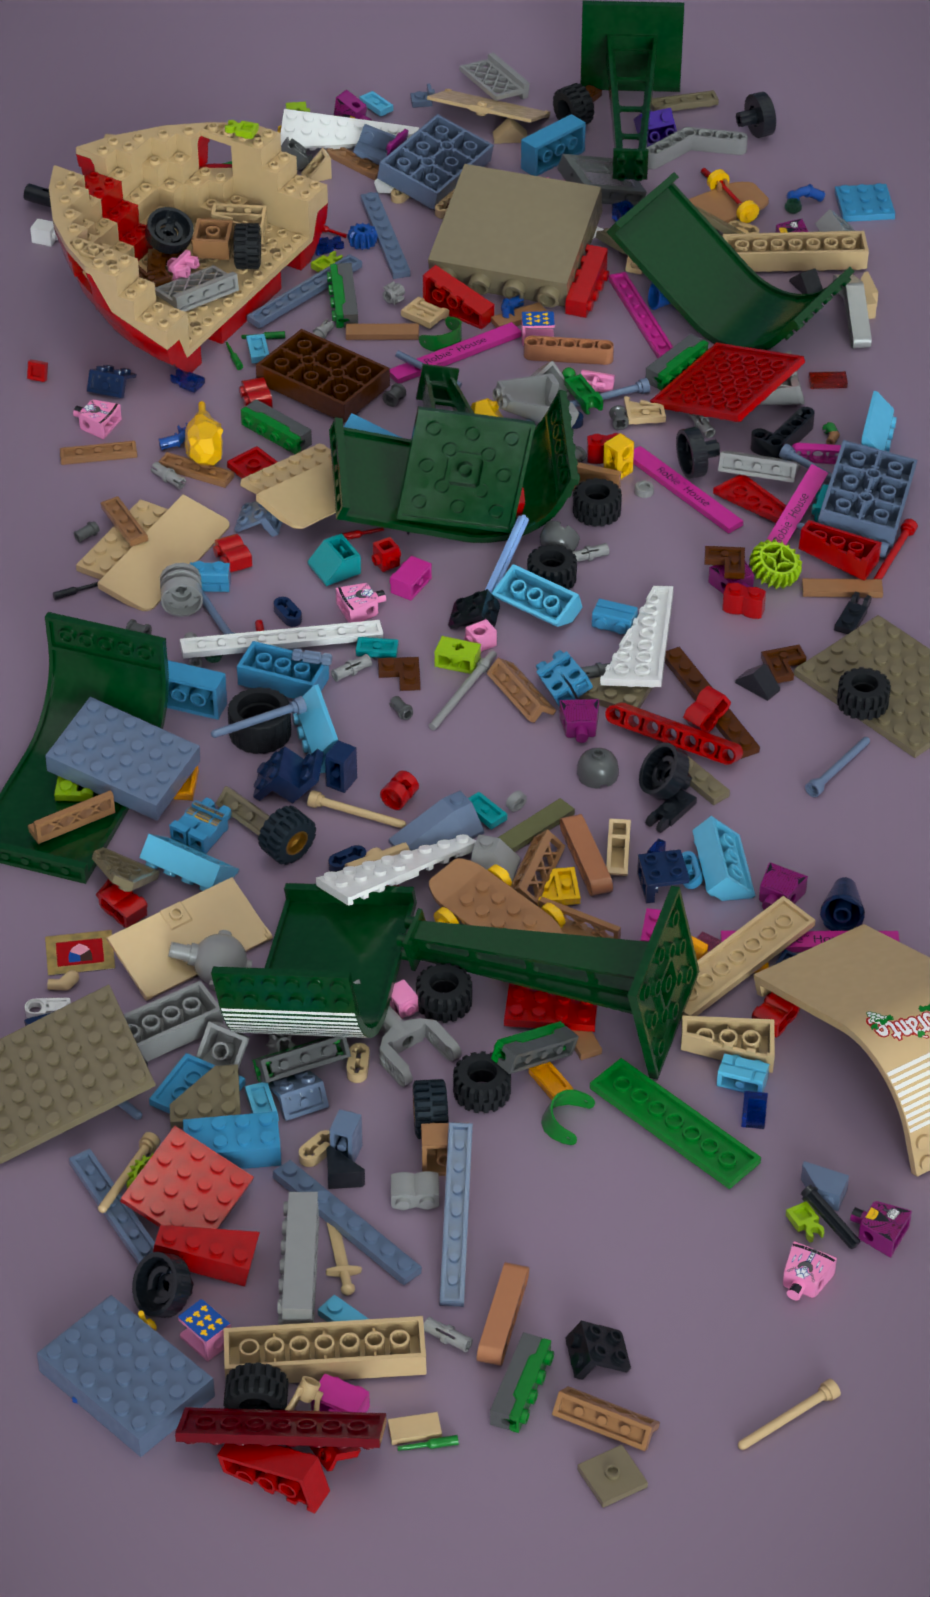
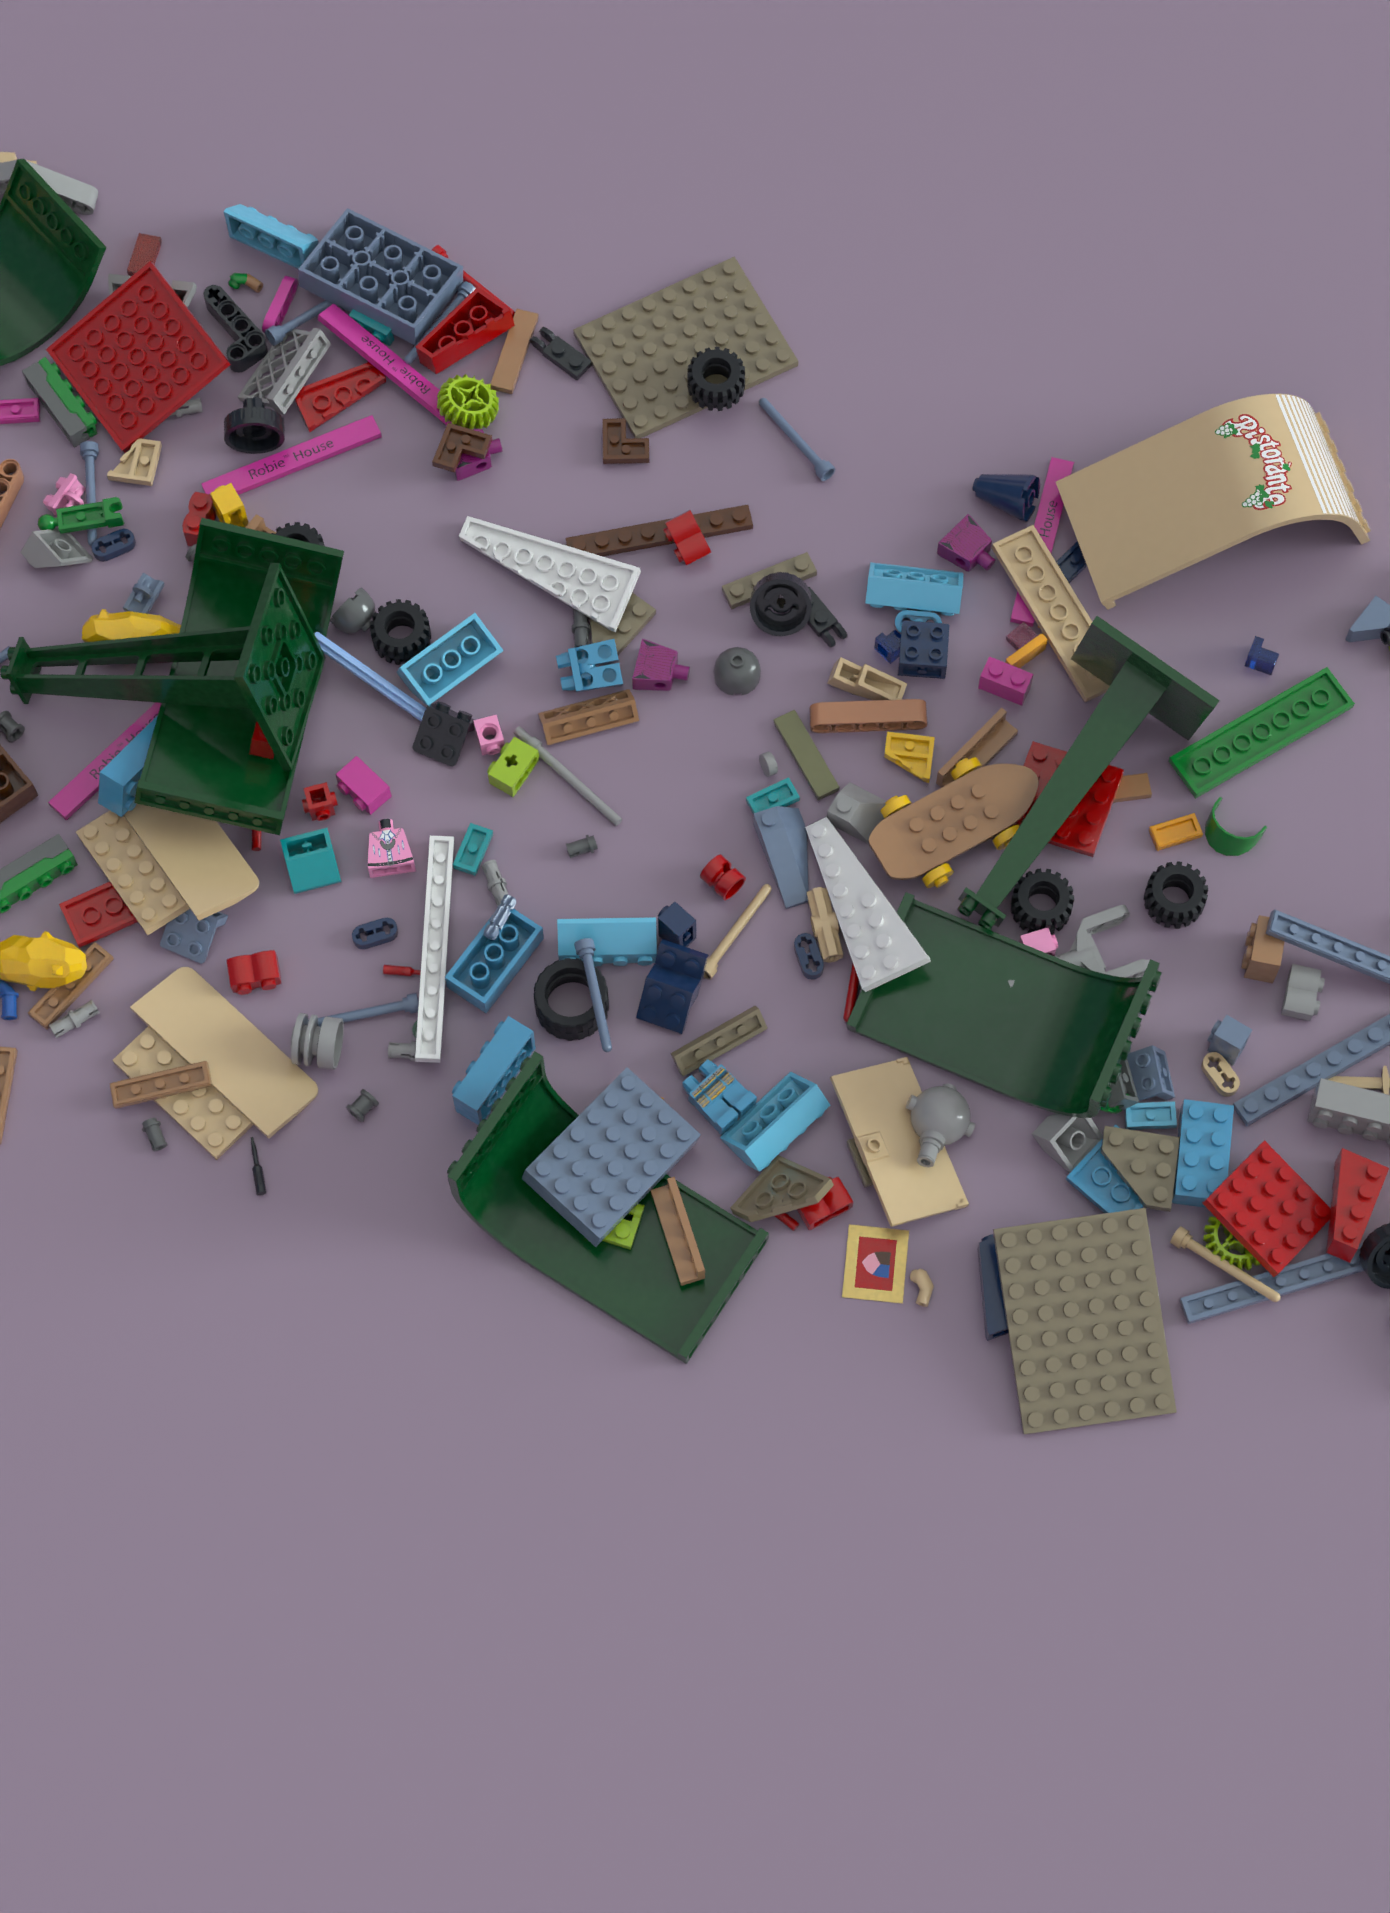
camera: 75 degrees left, 25 degrees up
(47, 1005) = (960, 1308): white piece -> none
(173, 1020) = (1021, 1177): light grey brick -> none
(214, 576) = (294, 1000): dark azure brick -> none
(287, 835) = (777, 1006): black wheel -> none
(343, 1171) = (1259, 1058): black slope -> none
(403, 667) = (517, 826): reddish brown plate -> none
(429, 1103) = (1214, 949): black wheel -> none
(529, 396) = (111, 574): light grey cone -> none
(533, 862) = (871, 771): medium nougat fence -> none
(534, 1047) = (1151, 831): dark grey piece -> none
(590, 553) = (375, 586): light grey pin -> none
(613, 616) = (499, 589): dark azure brick -> none
(617, 419) = (141, 491): dark grey bush -> none
(644, 489) = (276, 501): light grey tile -> none
(683, 733) = (709, 581): red beam -> none
(721, 1035) = (1179, 633): tan wedge -> none
(742, 1074) = (1215, 652): medium azure brick -> none
(744, 600) = (514, 452): red brick -> none
(759, 681) = (642, 477): black slope -> none
(778, 1009) = (1143, 605): red brick -> none

